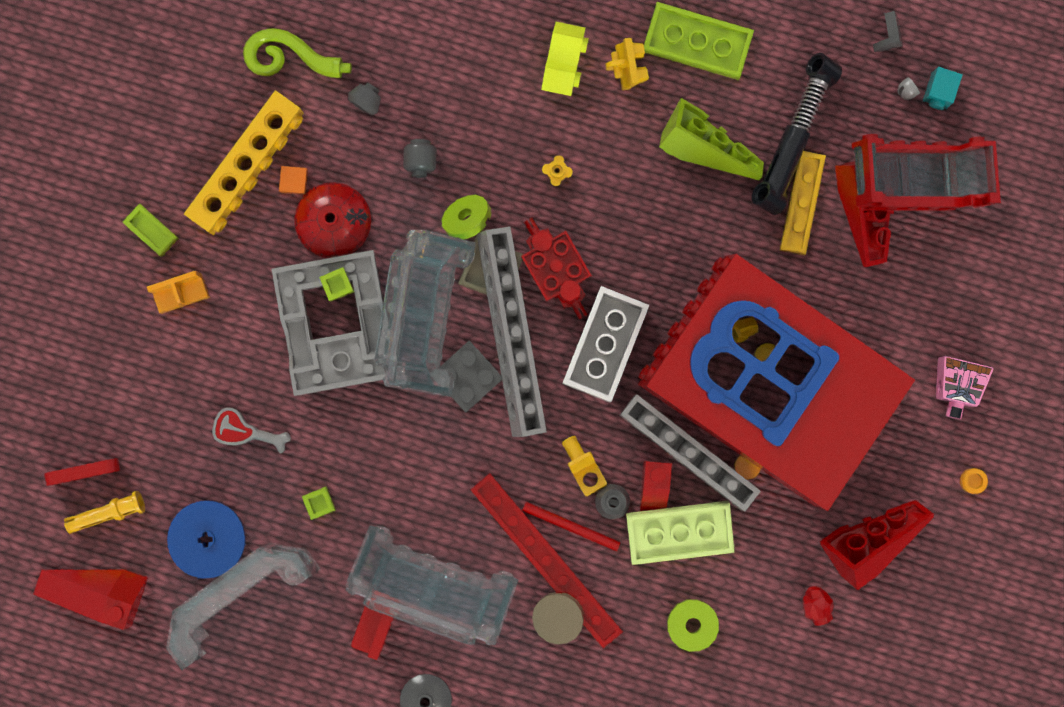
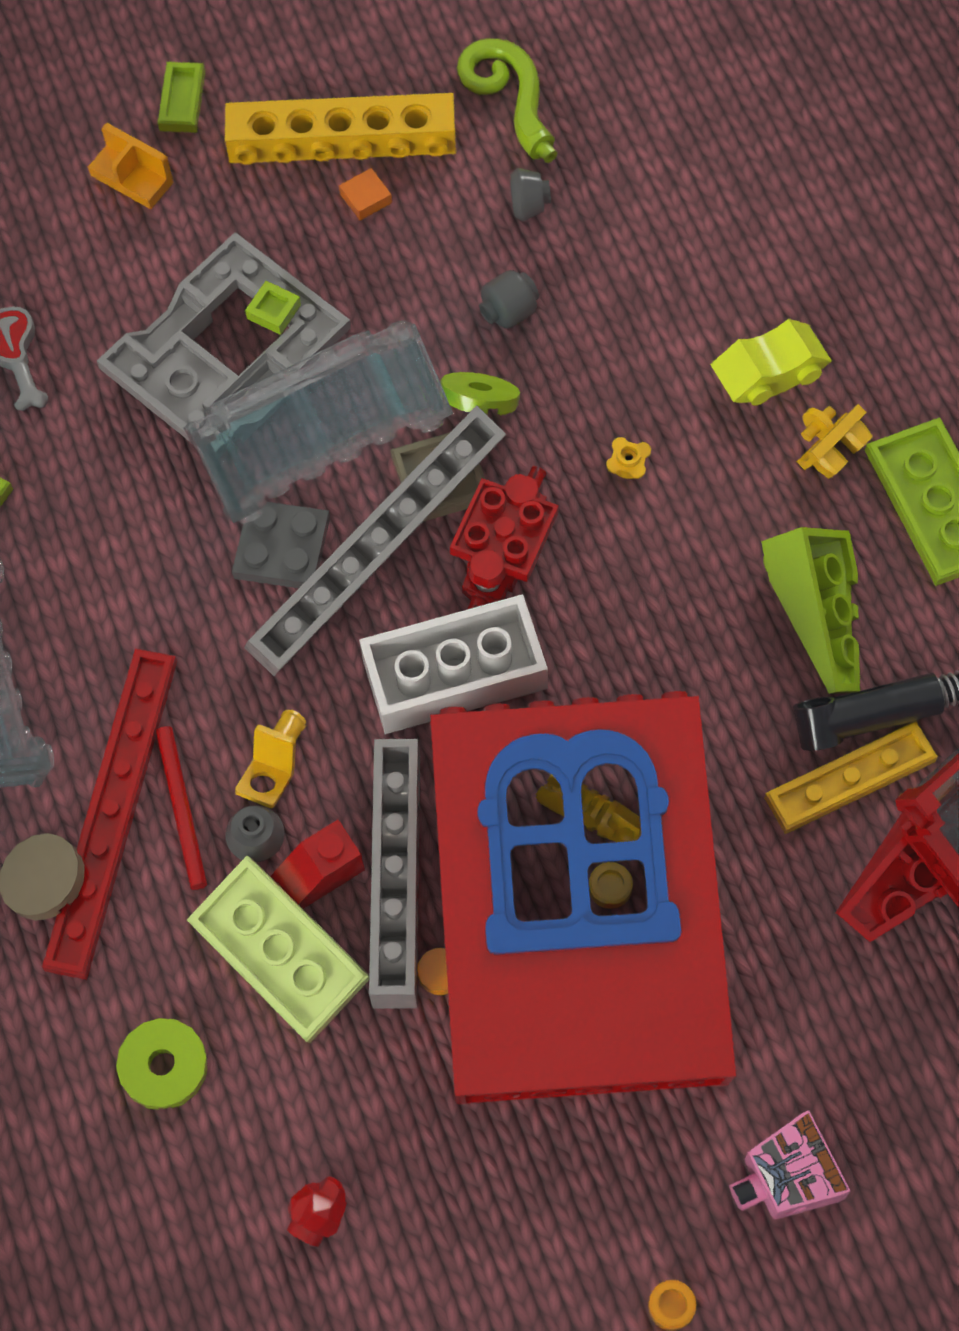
camera: 55 degrees right, 20 degrees down
(342, 235) = (356, 283): red dish -> none
(870, 547) = (454, 1222): red wedge -> none

